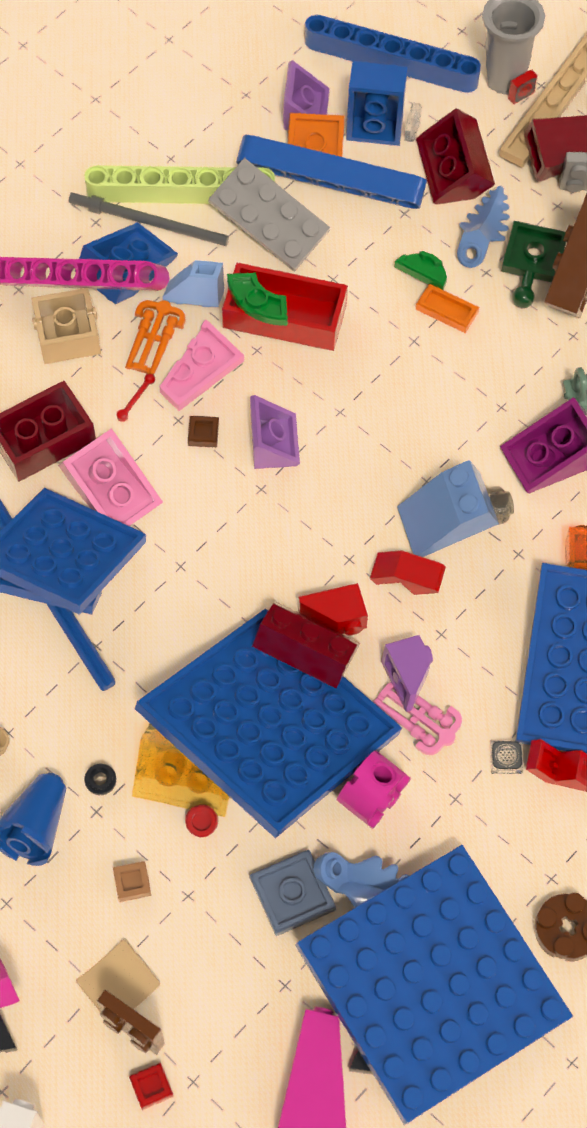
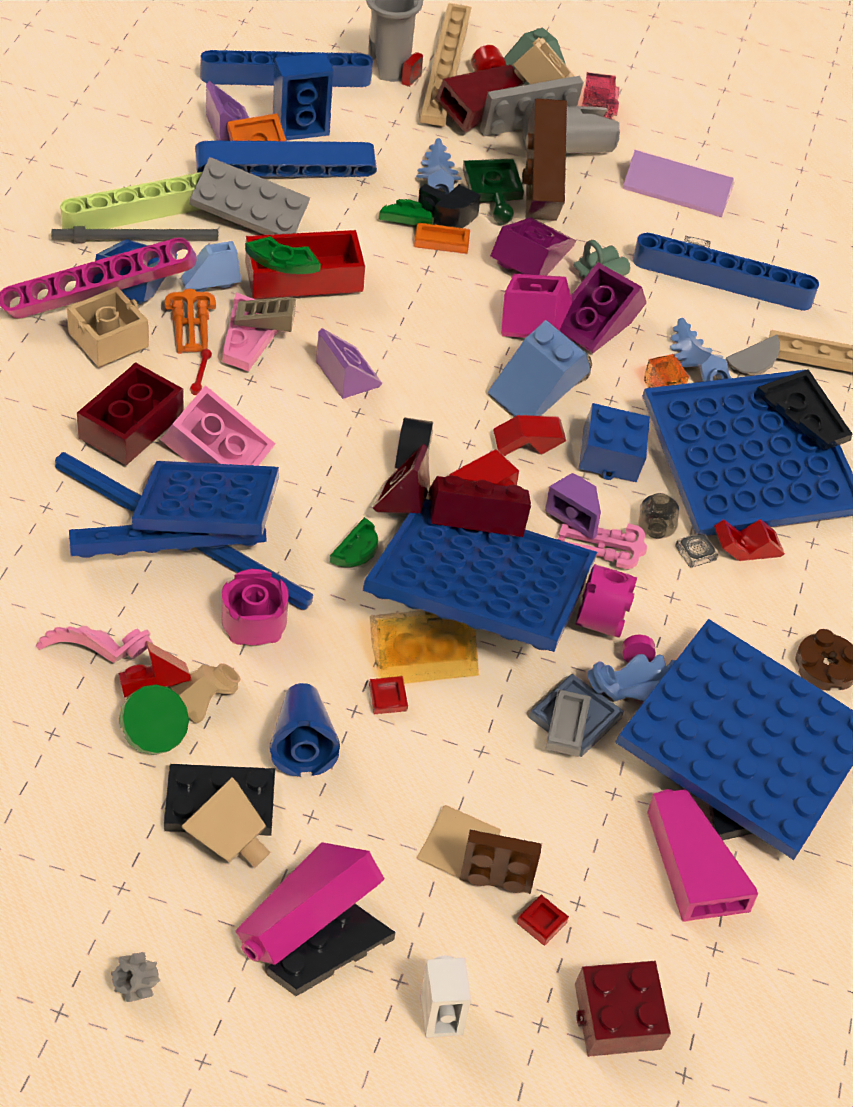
camera: 30 degrees left, 15 degrees down
(37, 683) = (254, 608): none -> dark pink brick
(97, 771) = (345, 672): black plate -> none
(130, 809) = (388, 695): none -> red tile
(132, 881) = (426, 752): medium nougat plate -> none
(182, 641) = (357, 546): none -> green plate
(202, 820) = (461, 682): red tile -> none
(203, 431) = (280, 381): reddish brown tile -> none
(223, 367) = (275, 313): none -> dark tan slope
(252, 597) = (407, 486): none -> dark red slope
(273, 901) = (568, 723): none -> light grey tile
(285, 550) = (412, 435): none -> black brick
(384, 847) = (637, 645): none -> dark pink tile
(413, 122) = (336, 113): clear tile -> none
(455, 159) = (388, 128): dark red slope -> none
(474, 278) = (451, 209): none -> black brick
(484, 611) = (614, 442): none -> blue brick
(486, 708) = (659, 516): none -> clear smoke head
(488, 427) = (533, 300): none -> dark pink slope
(530, 348) = (530, 247): none -> magenta slope

